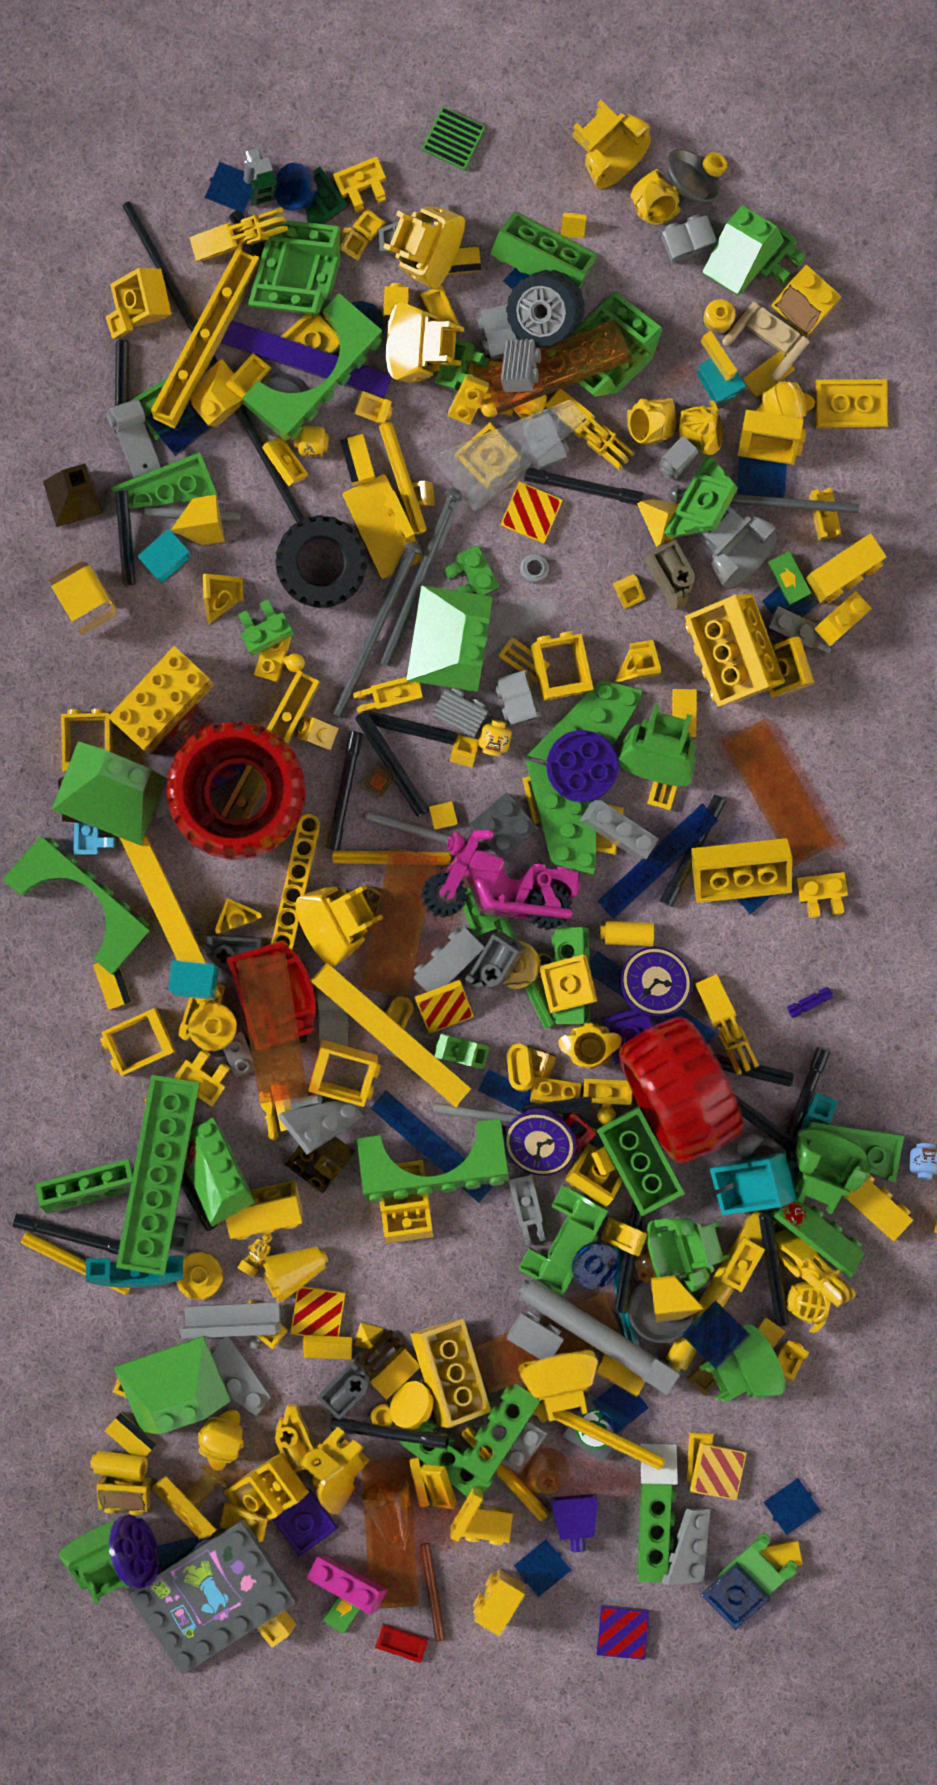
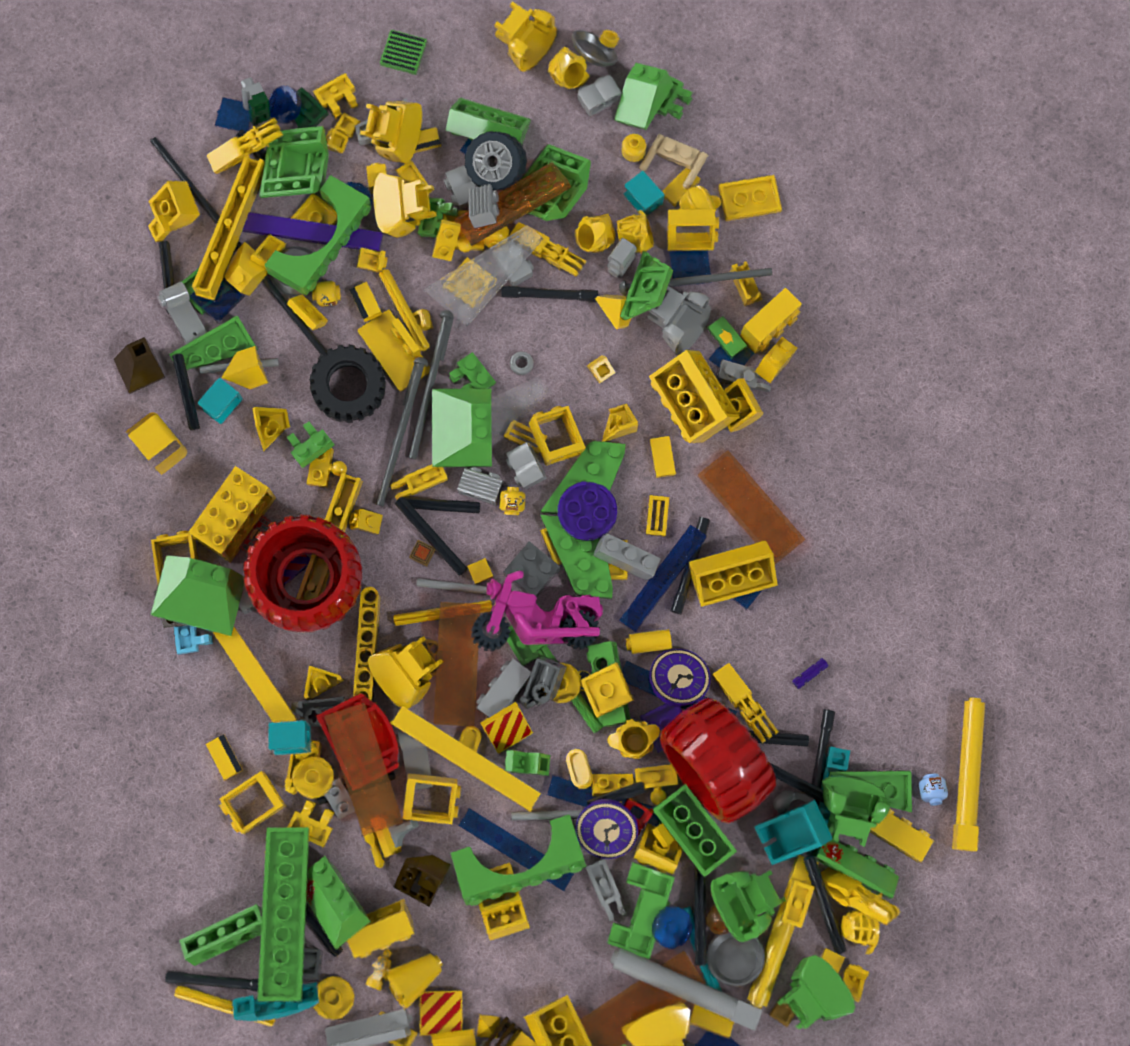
camera: 10 degrees left, 10 degrees down
(46, 863) = (155, 665): bright green arch -> none
(319, 1123) = (416, 844): light grey wing -> none
(336, 829) = (393, 597): black piece -> none
(464, 750) = (489, 516): yellow slope -> none
(531, 513) = (511, 321): tile -> none
(534, 1336) = (631, 999): light grey brick -> none
(542, 1063) = (597, 762): yellow slope -> none
(573, 225) = (507, 99): yellow slope -> none
(624, 1236) = (692, 898): yellow tile -> none
(665, 753) = (650, 489): bright green piece -> none
(667, 565) = (632, 348): dark tan piece -> none
(672, 1299) = (744, 945): yellow slope -> none
(715, 1335) = (787, 970): clear blue tile -> none
(718, 356) = (639, 173): yellow tile -> none
(806, 301) = (699, 126): slope -> none
(822, 887) = (800, 578): yellow plate -> none

